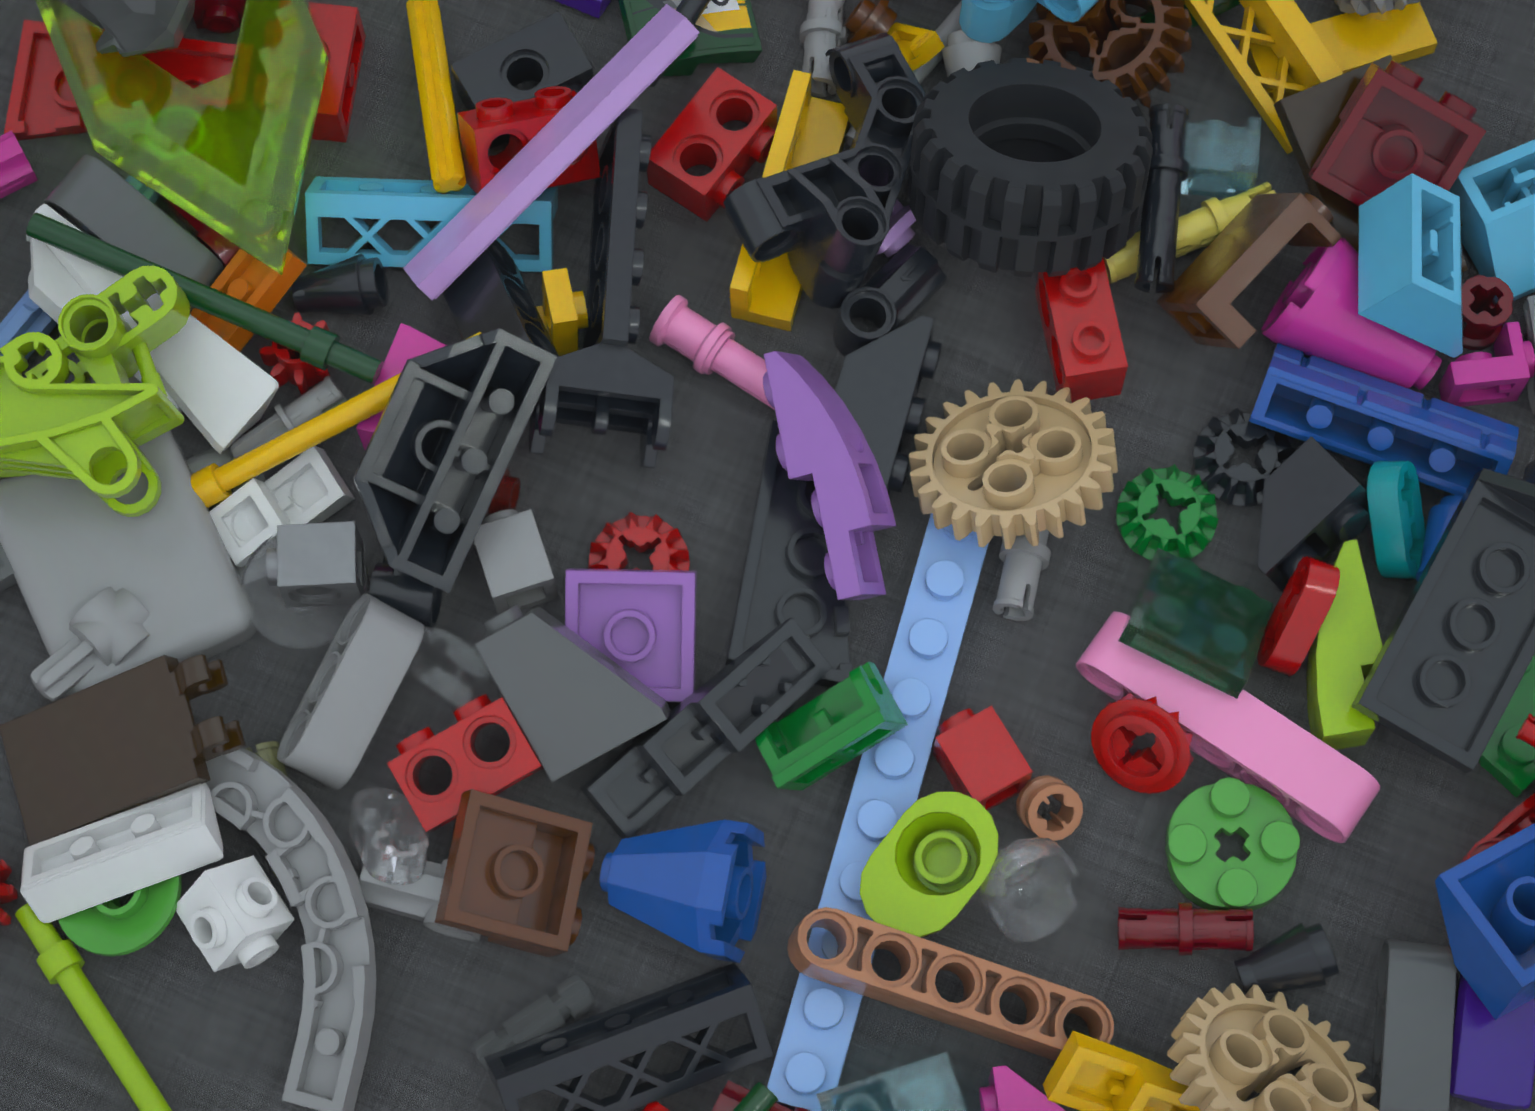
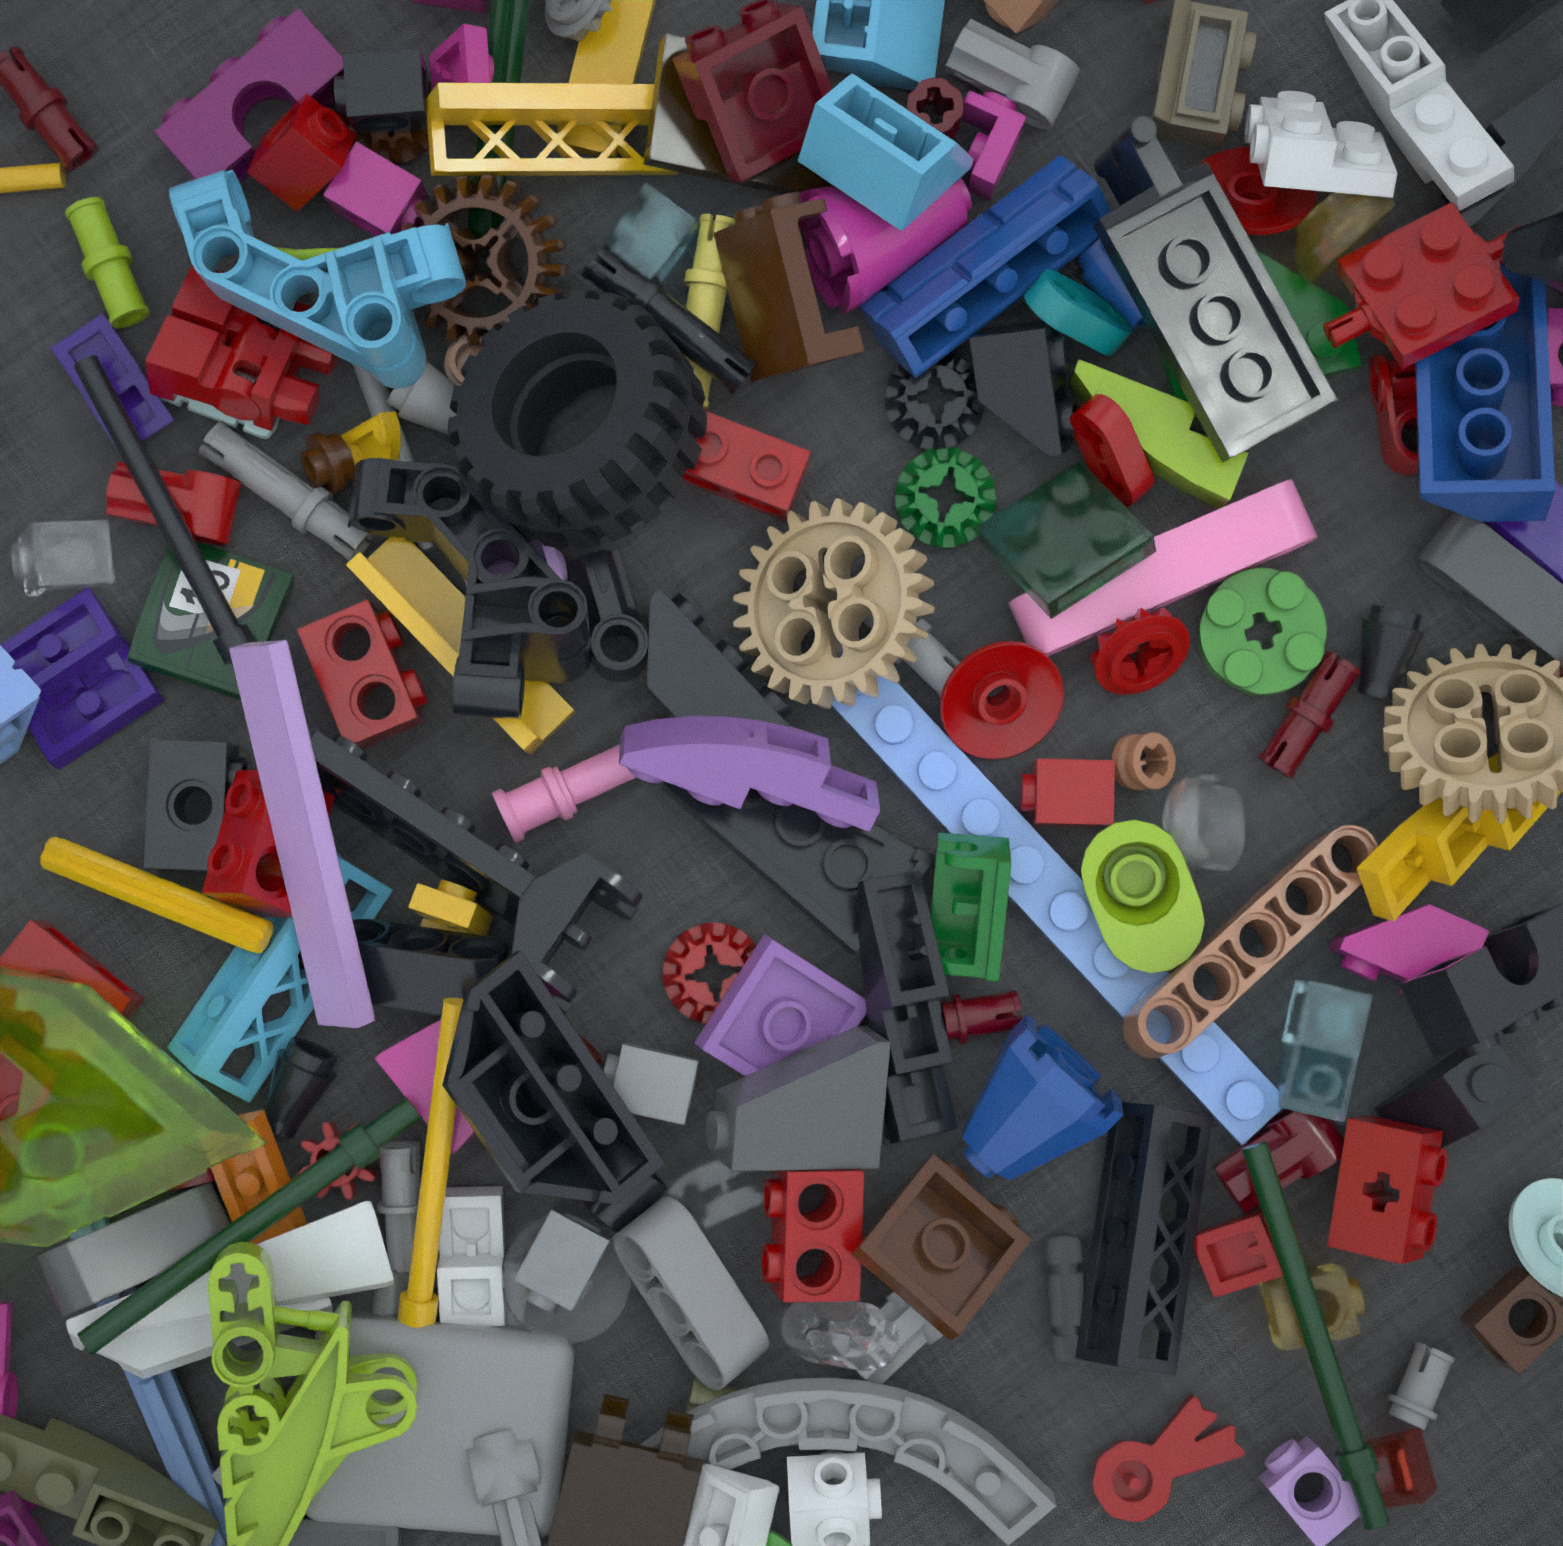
camera: 60 degrees left, 15 degrees up
(736, 796) = (980, 1015): none -> dark red pin
(1000, 671) = (1013, 718): none -> red dish

